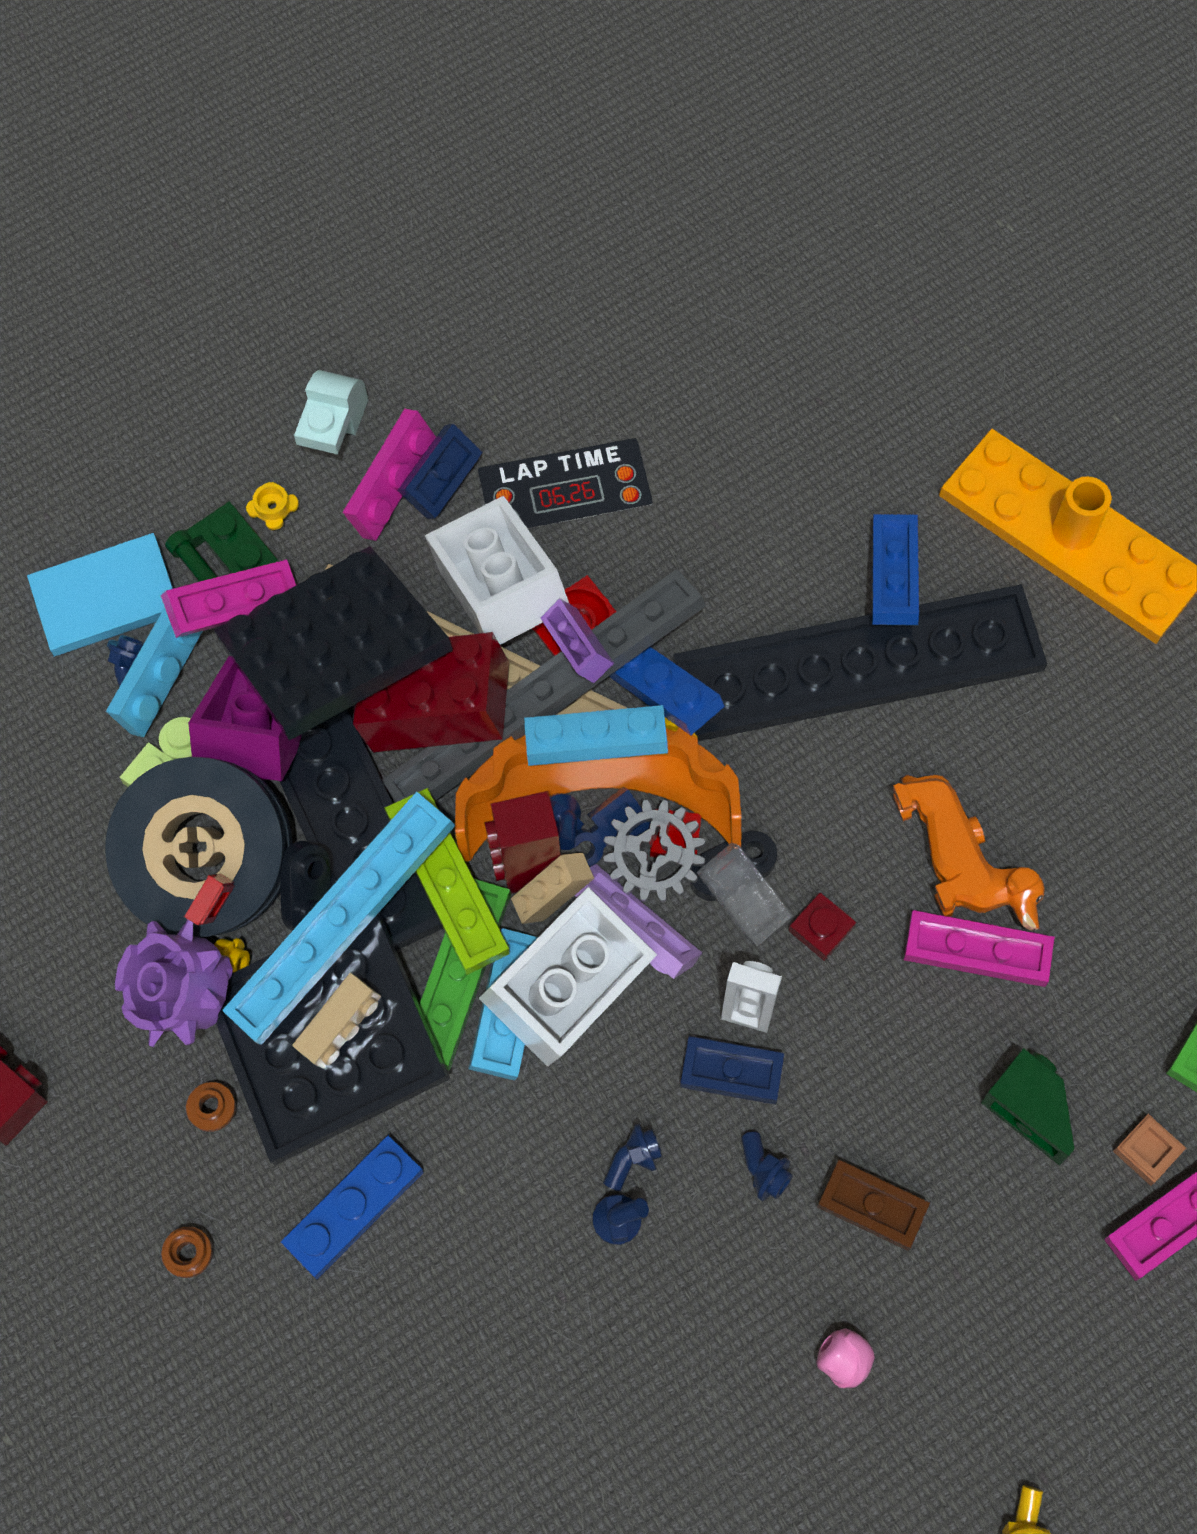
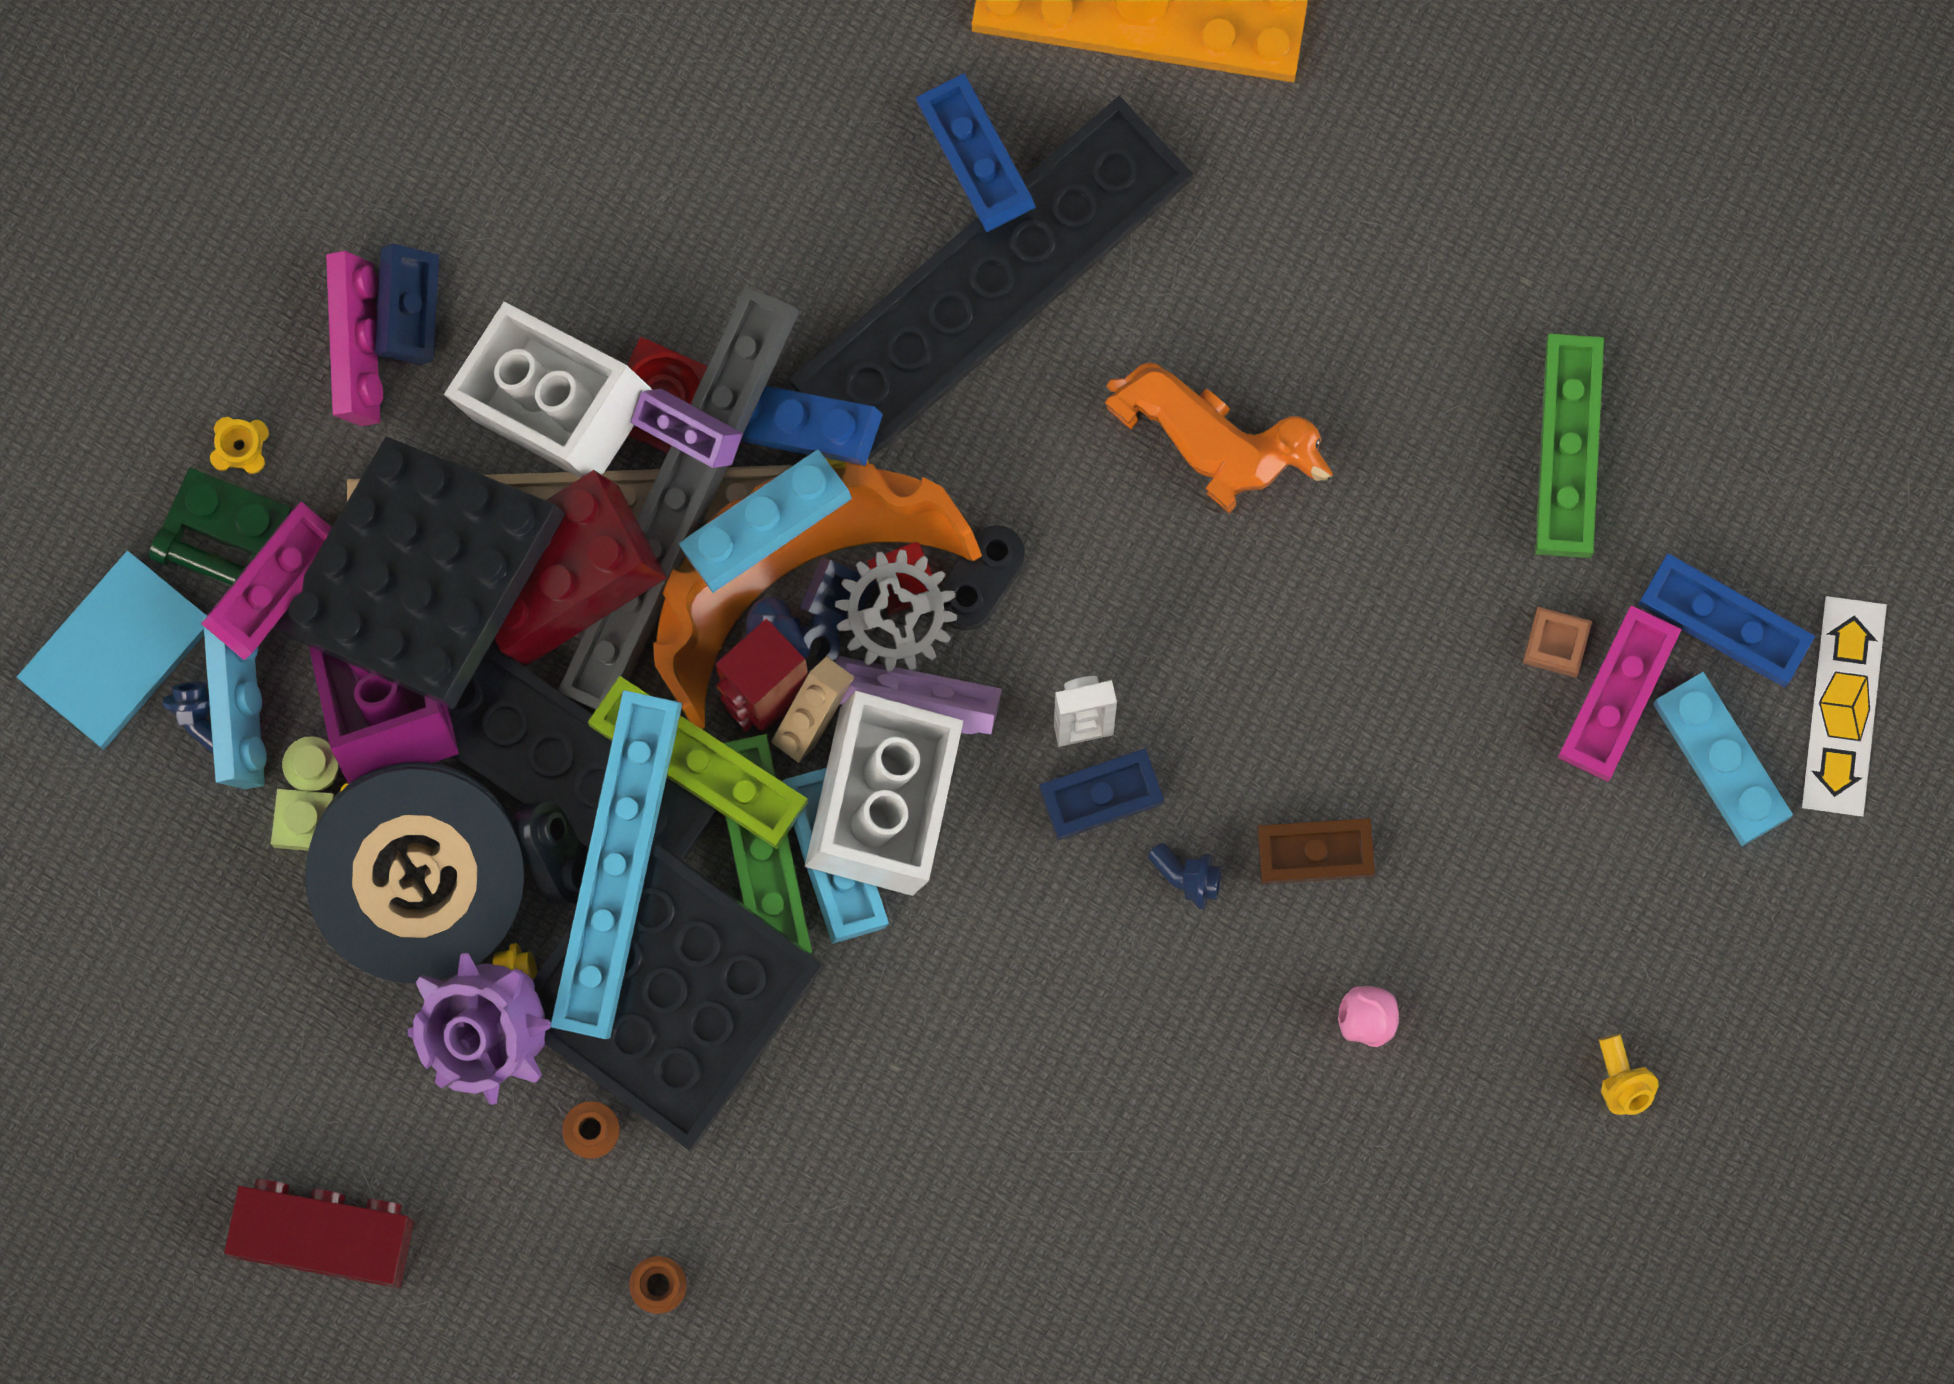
camera: 30 degrees left, 10 degrees up
(210, 899) = (470, 921): red tile -> none
(331, 410) = (243, 303): light aqua brick -> none
(337, 1021) = (678, 971): tan piece -> none
(352, 1207) = (797, 1146): blue plate -> none
(570, 483) = (554, 238): black sticker -> none
(619, 1218) = (1072, 1006): dark blue plate -> none
(640, 1149) = (1053, 927): dark blue plate -> none
(744, 894) = (1013, 604): clear plate -> none
(822, 926) = (1109, 592): dark red plate -> none
(979, 948) = (1282, 527): dark pink plate -> none
(1034, 1104) = (1420, 660): dark green slope -> none

